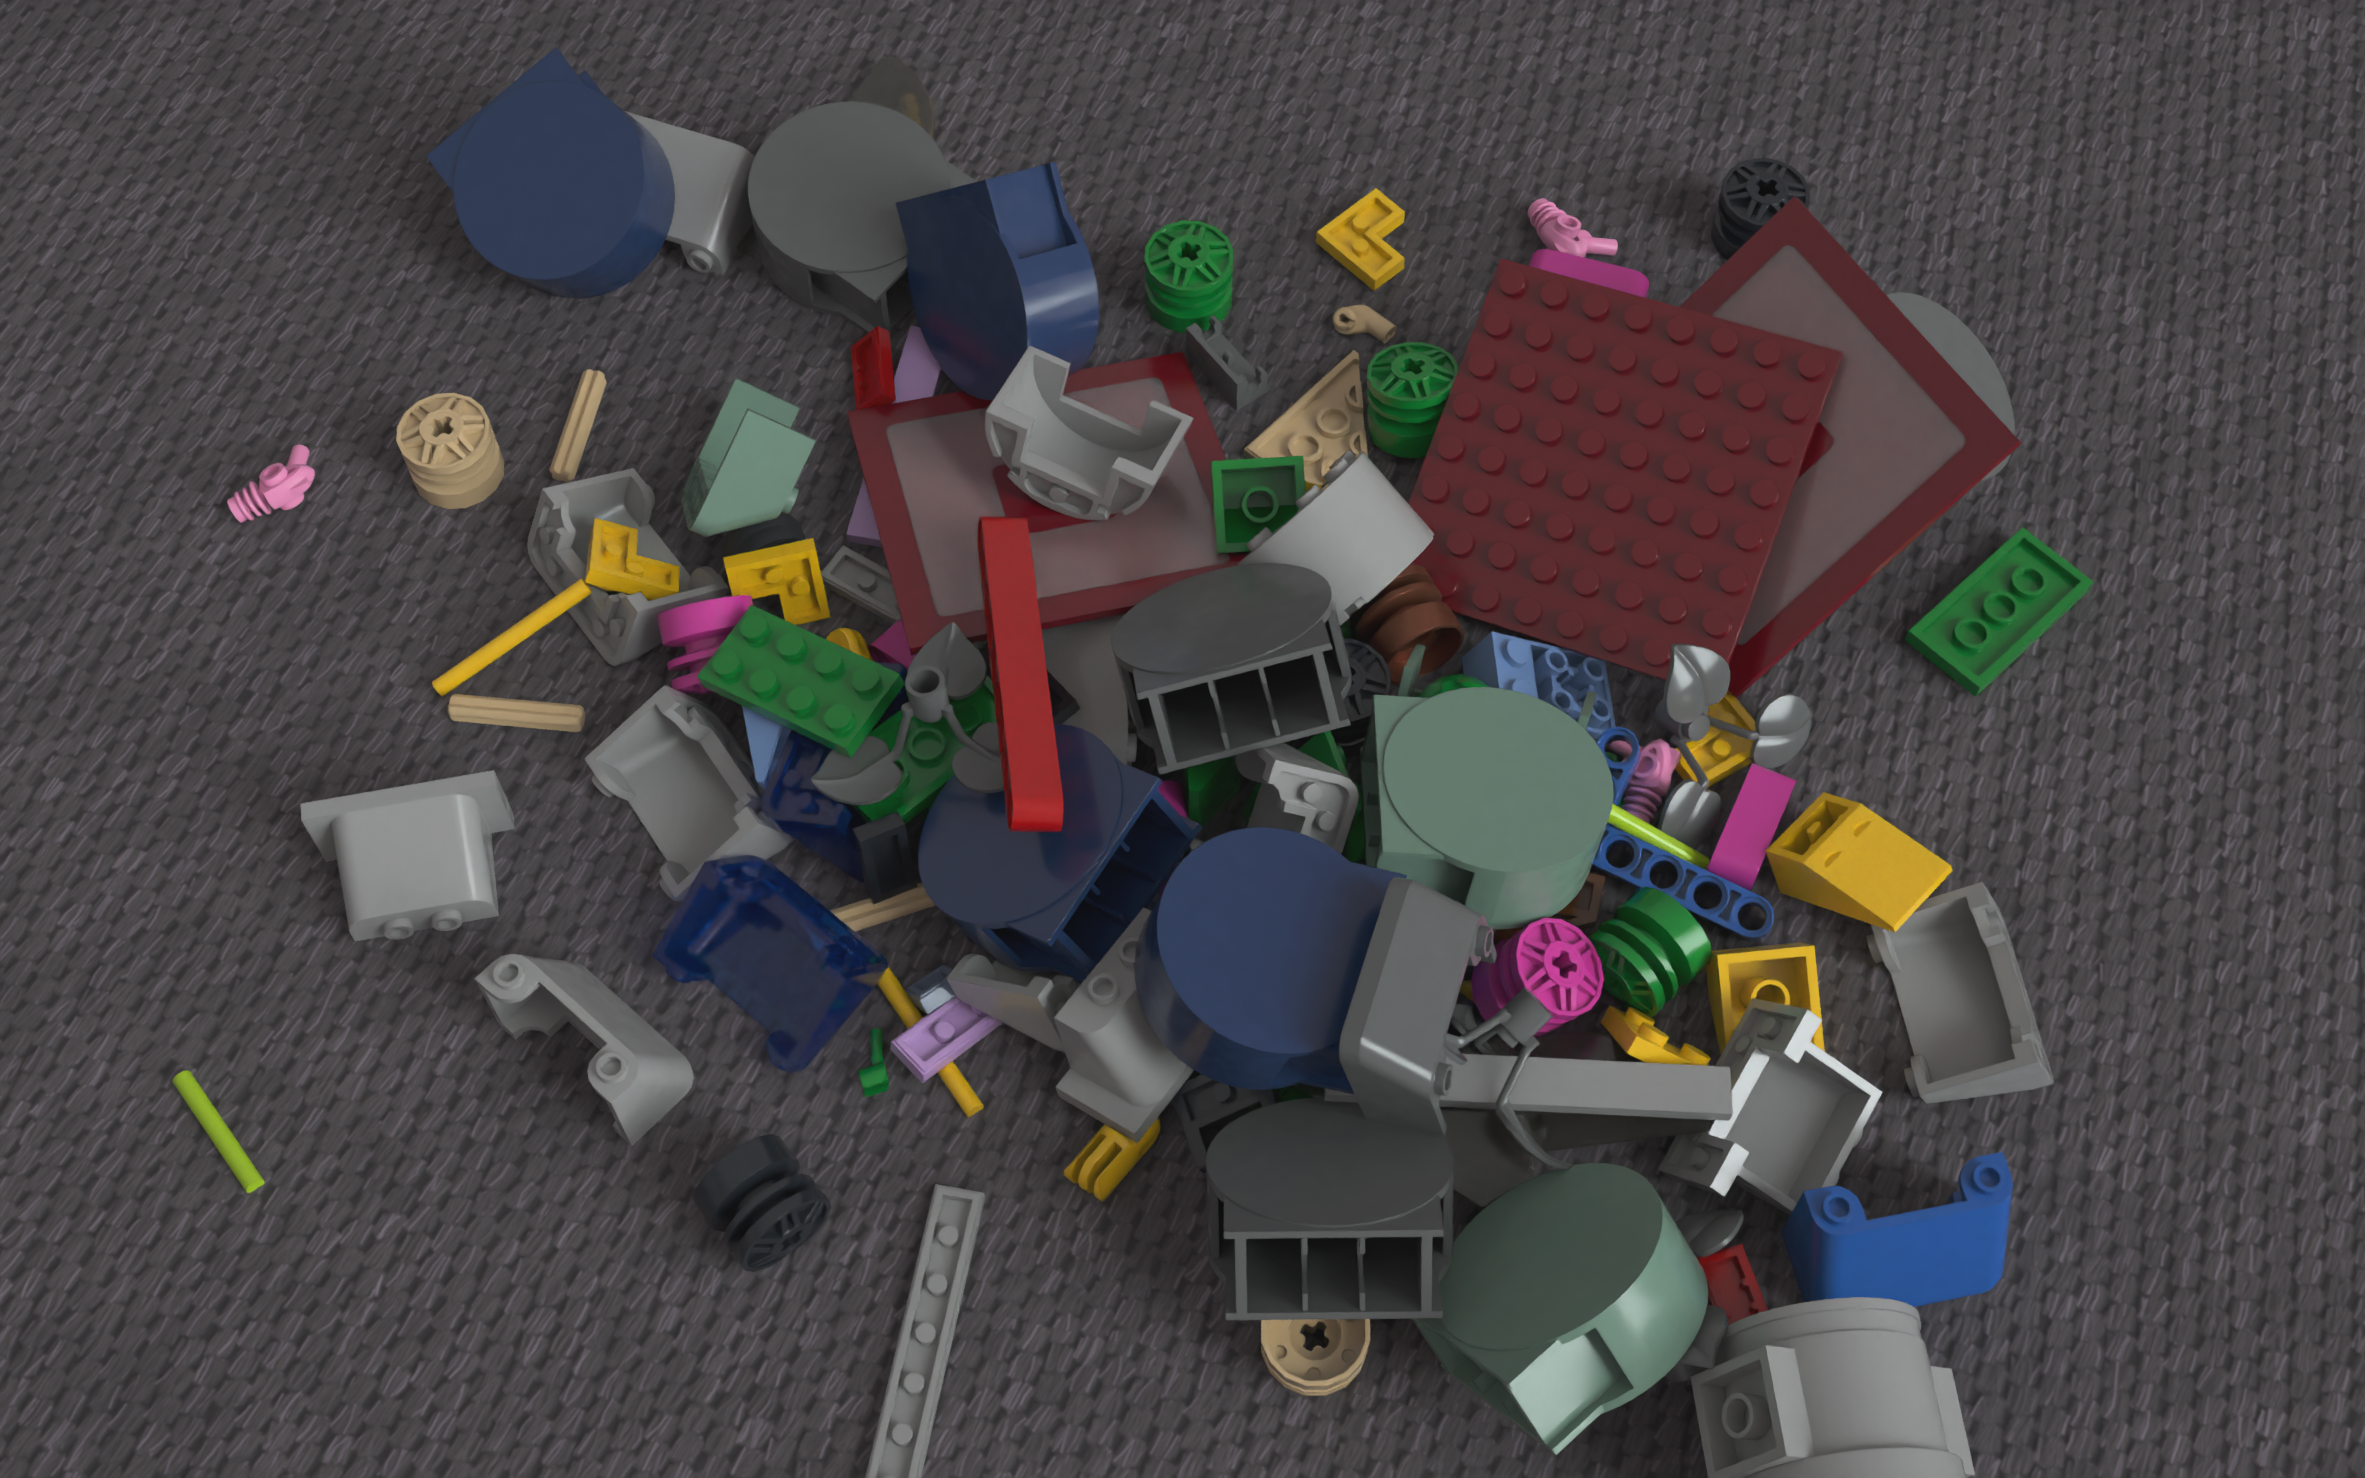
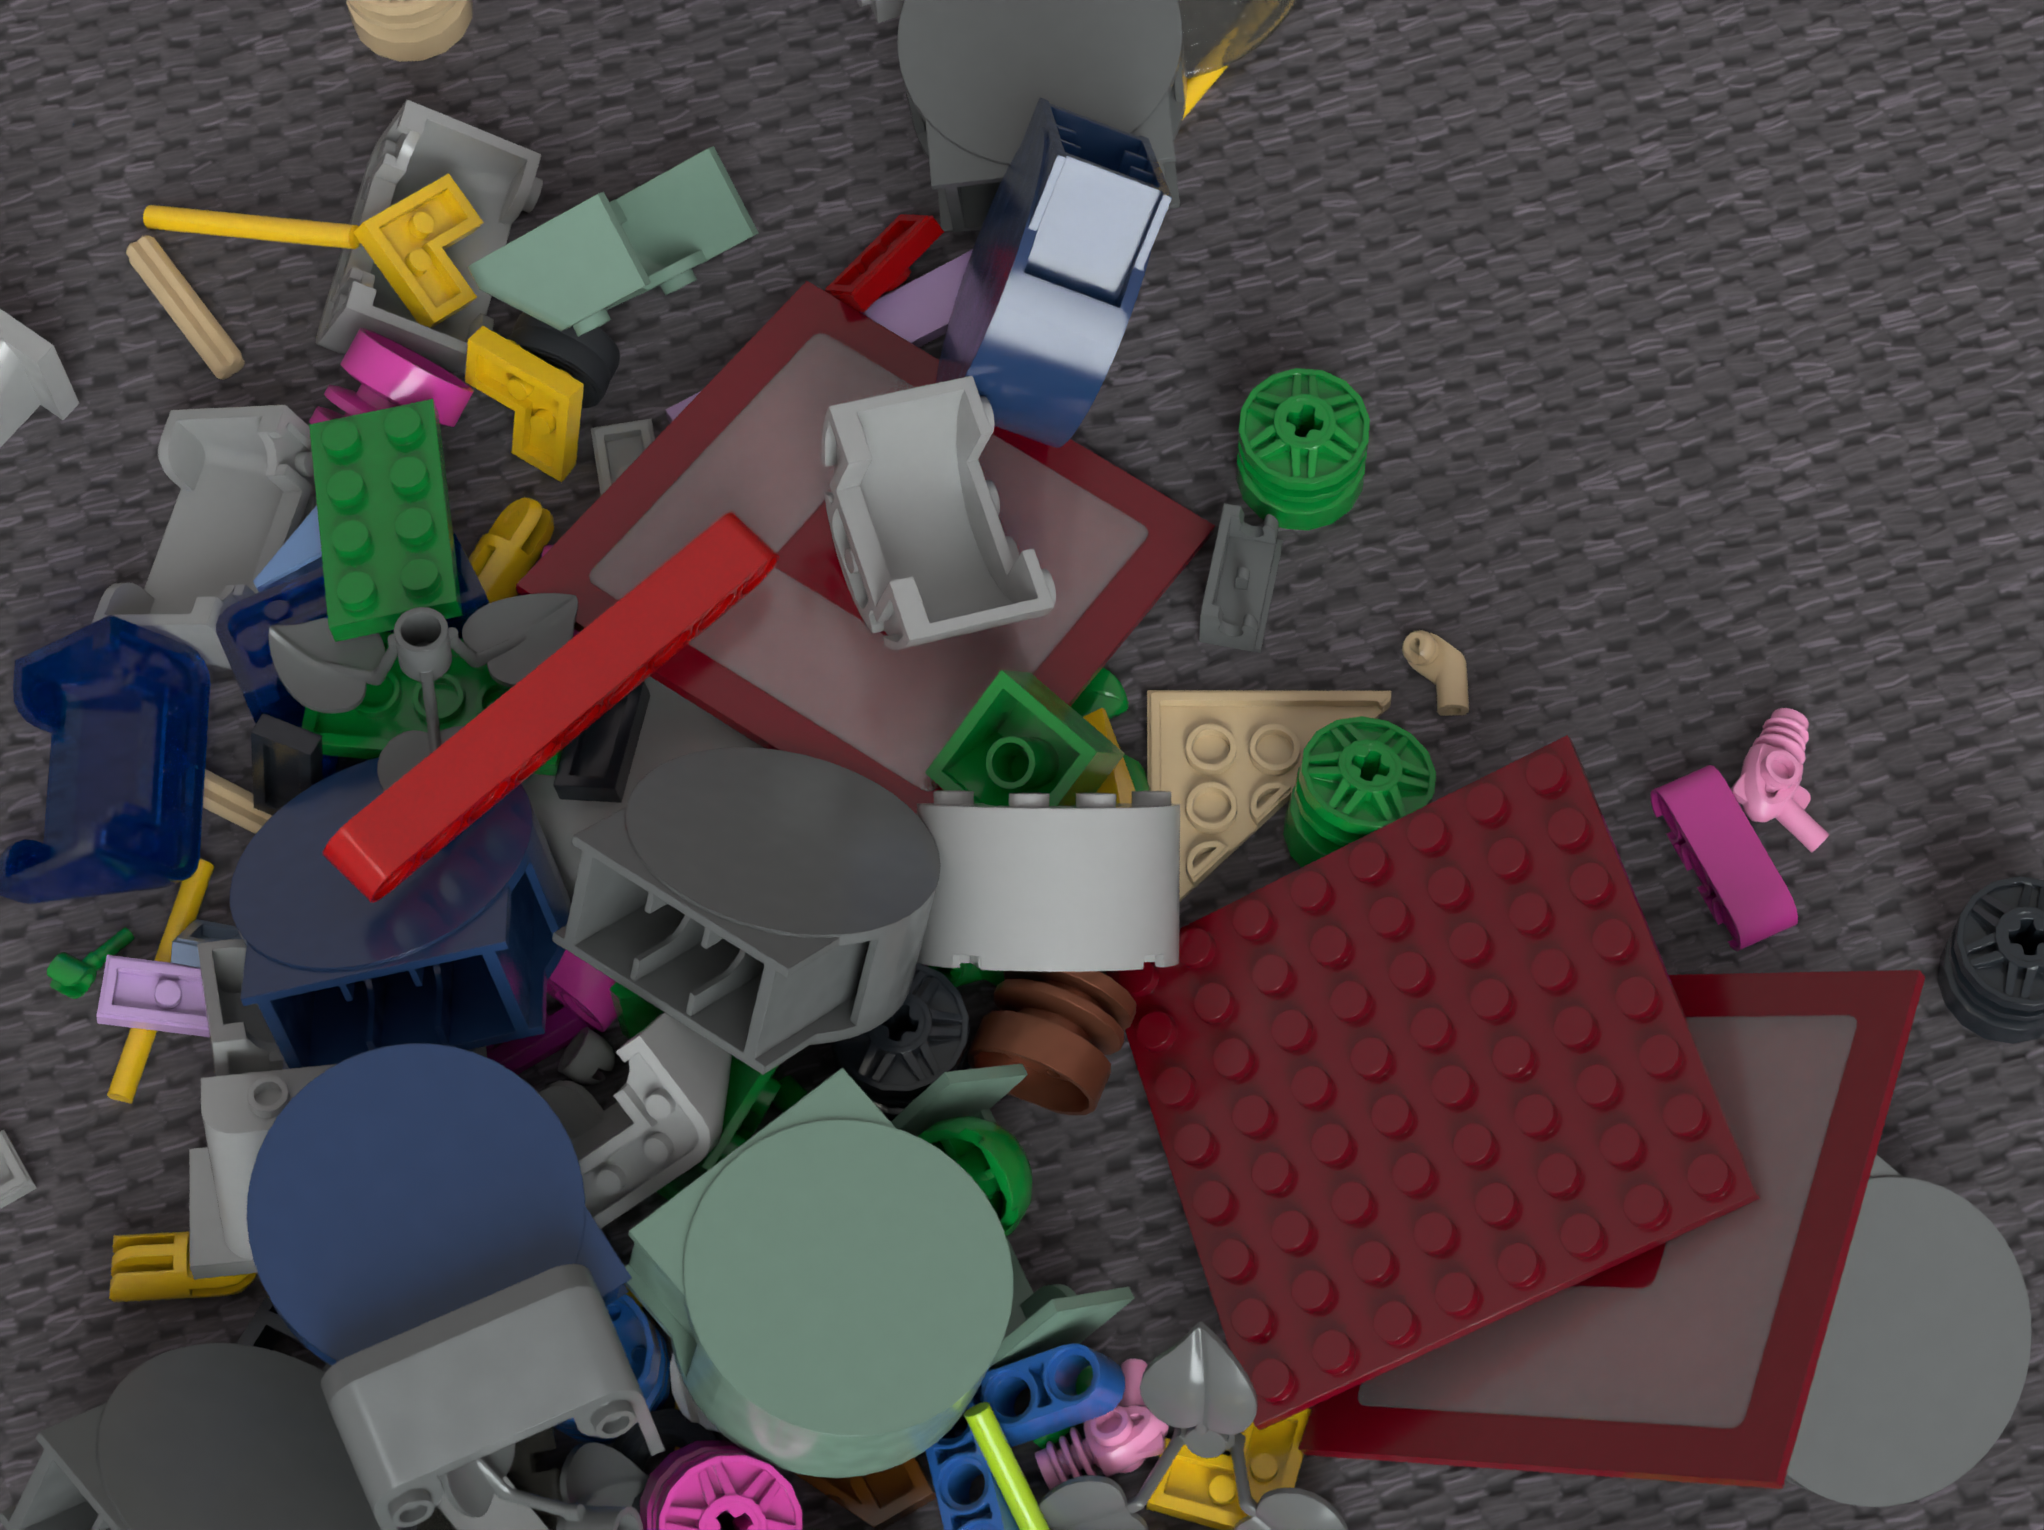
camera: 50 degrees right, 5 degrees up
(578, 425) = (561, 62): tan axle -> none
(1357, 239) = (1546, 566): yellow plate -> none
(1545, 673) = (1110, 1225): medium blue slope -> none

